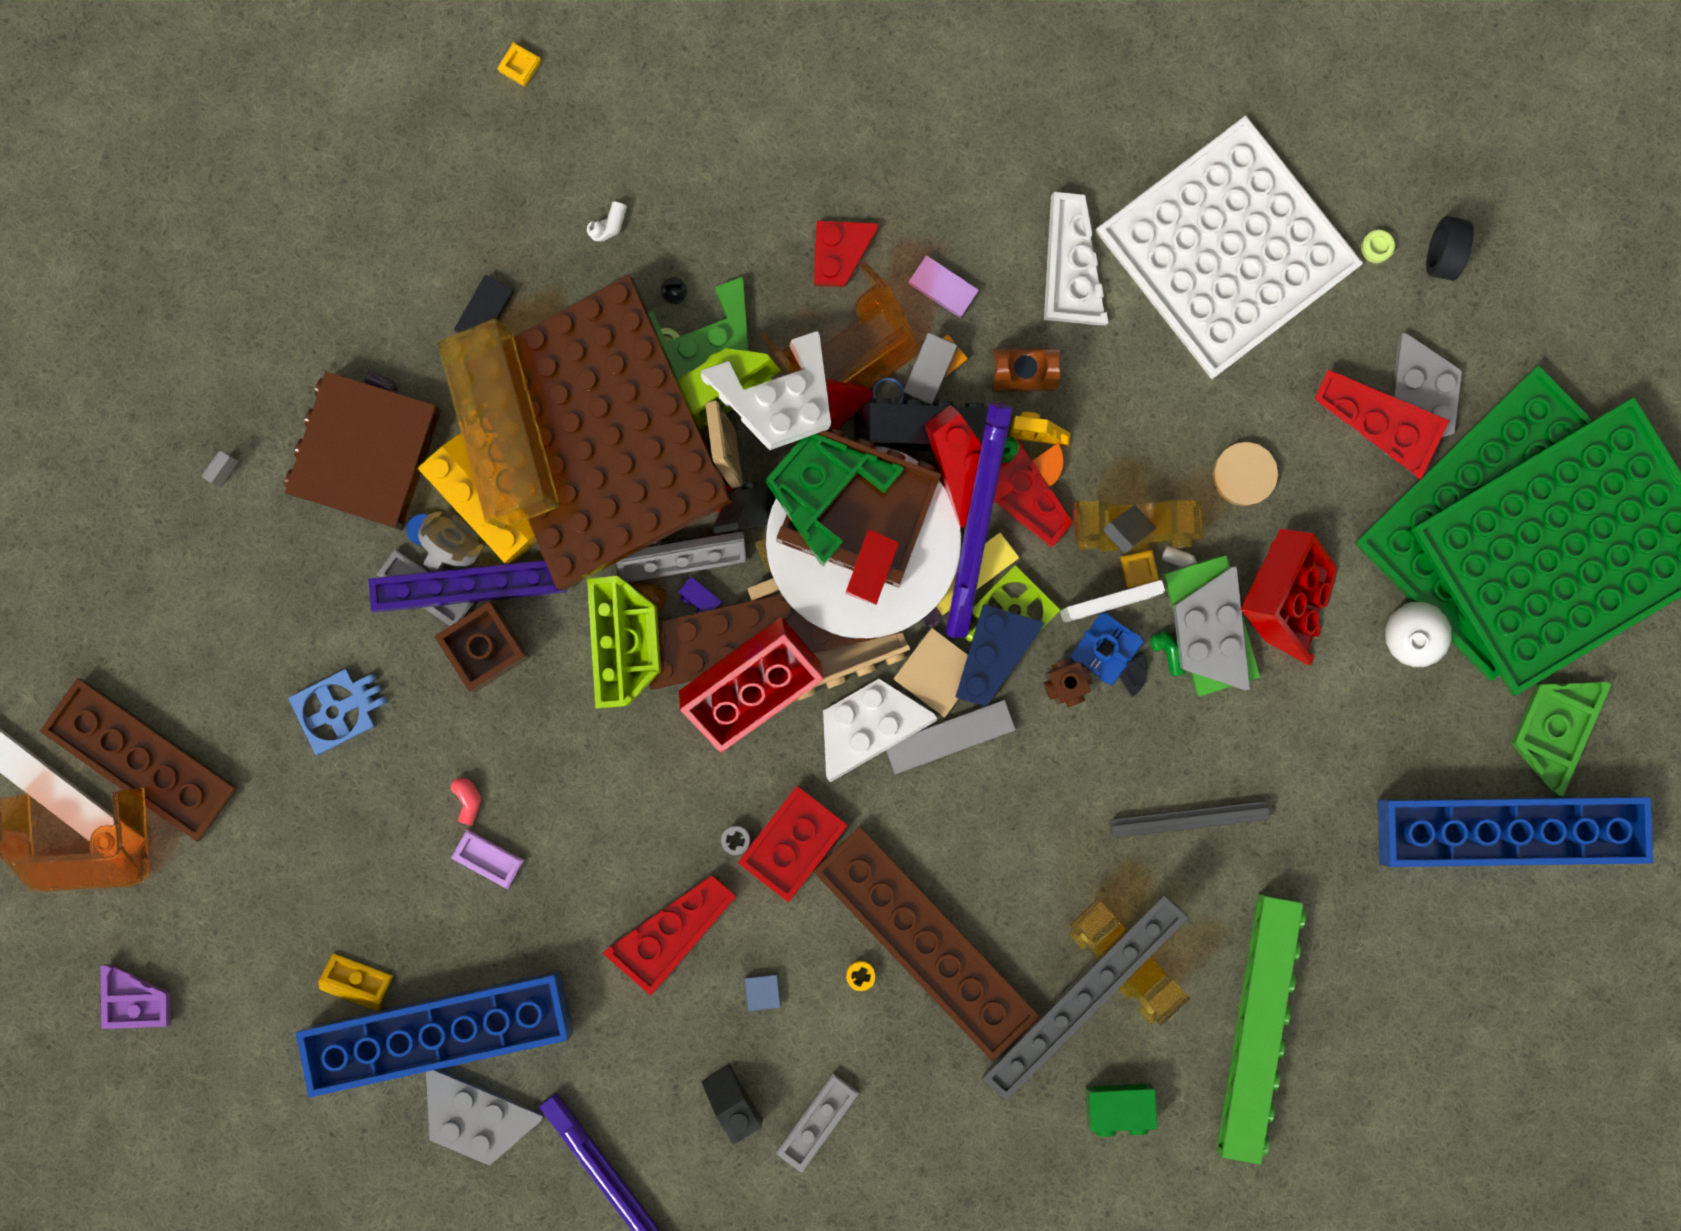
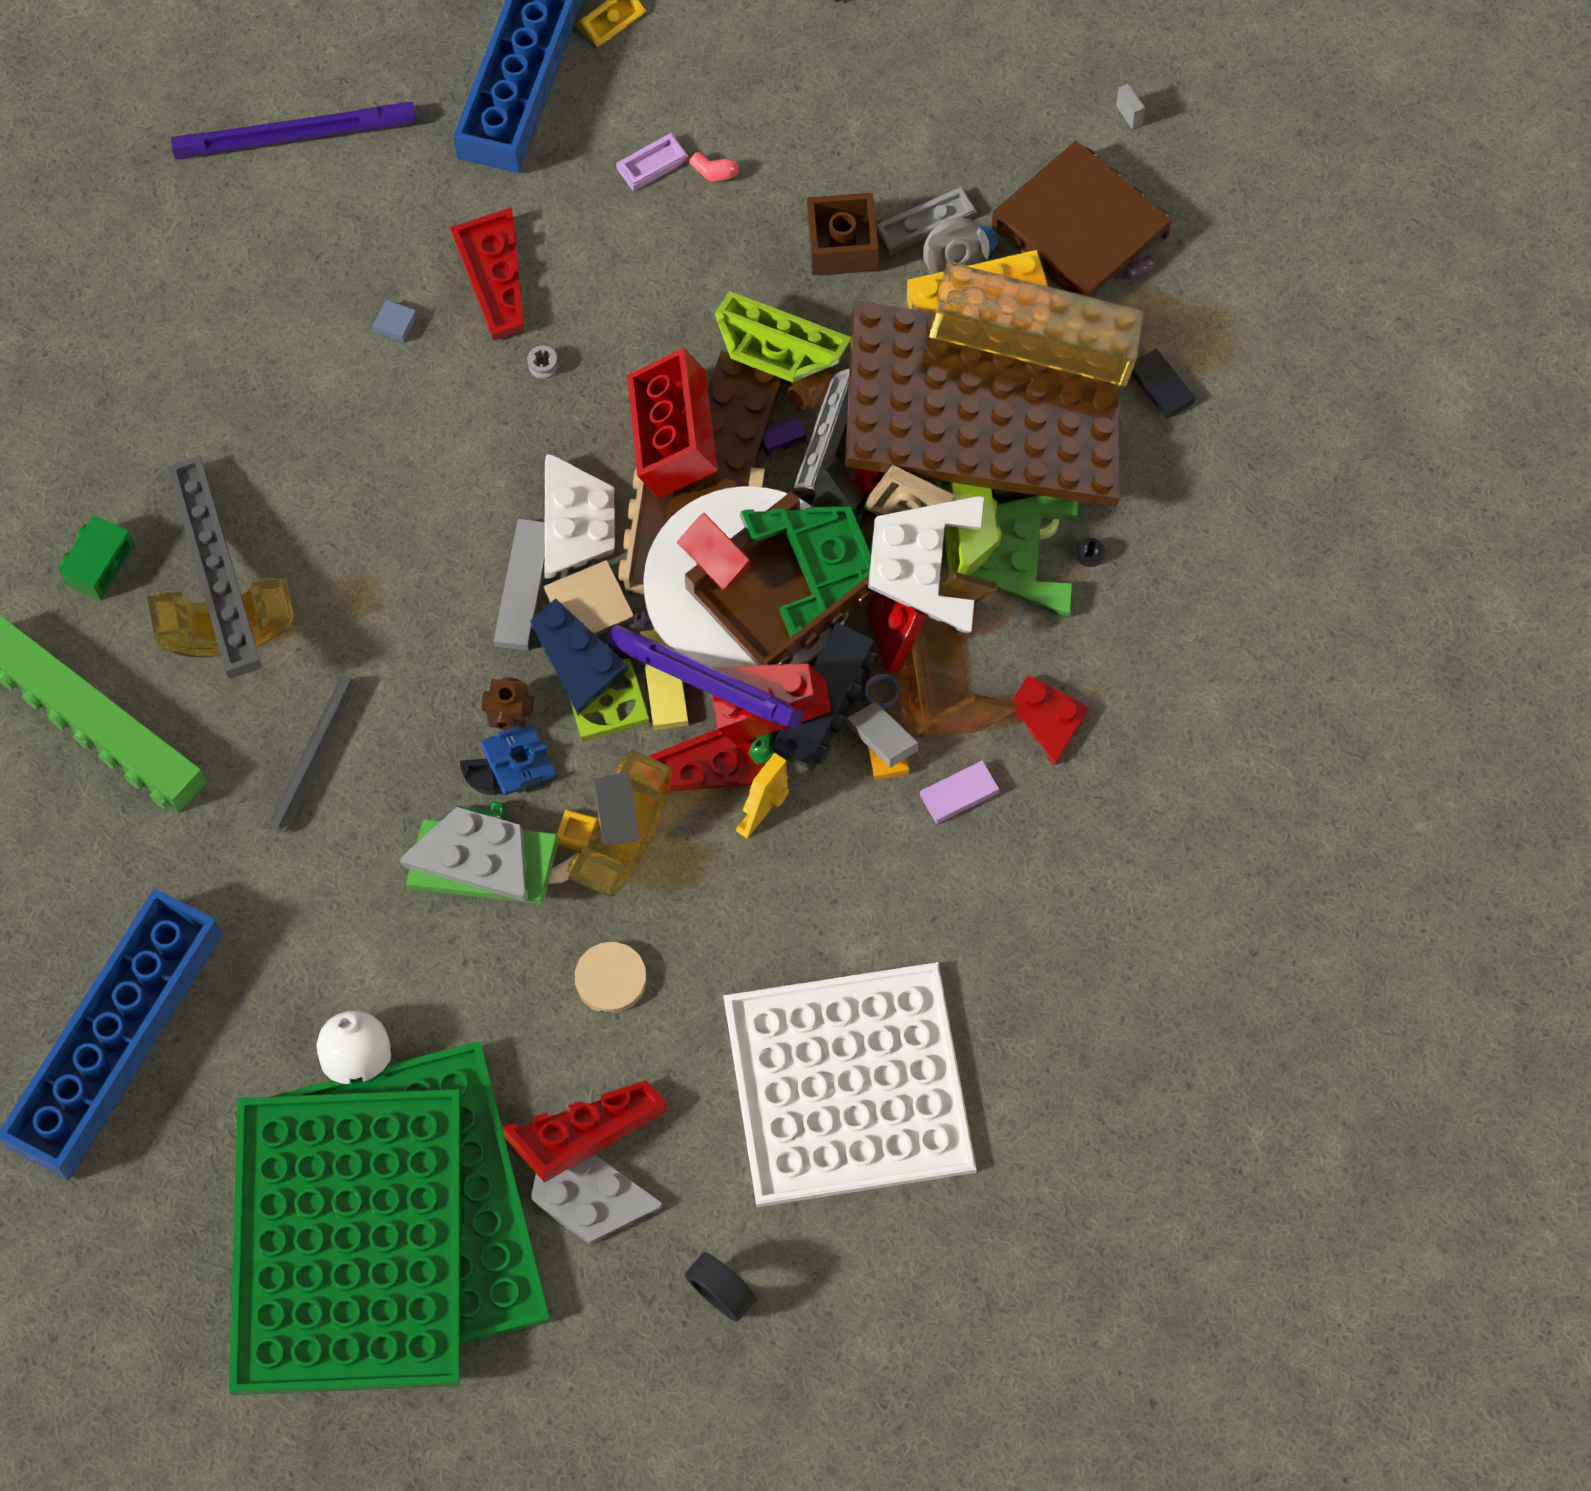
camera: 120 degrees right, 20 degrees down
(360, 698) = (857, 127): medium blue piece -> none
(461, 586) = (911, 233): dark purple plate -> none
(474, 1118) = (435, 53): light grey wing -> none
(519, 64) = (1391, 522): yellow tile -> none
(608, 227) = (1185, 524): white arm -> none
(732, 1105) = (312, 247): pearl dark grey slope -> none
(792, 844) = (509, 405): red plate -> none
(817, 1122) = (253, 311): light grey tile -> none
(865, 985) = (356, 415): yellow bush -> none
(926, 943) = (349, 470): reddish brown plate -> none
(1026, 369) = (837, 813): dark orange piece -> none
(1050, 464) = (726, 800): orange tile -> none
(1071, 274) = (908, 917): white wing -> none
(1112, 601) = (559, 773): white tile -> none
(1290, 592) = (466, 950): red wedge -> none
(1378, 246) = (766, 1232): yellowish green tile -> none
(1557, 729) = (180, 1139): bright green wing -> none

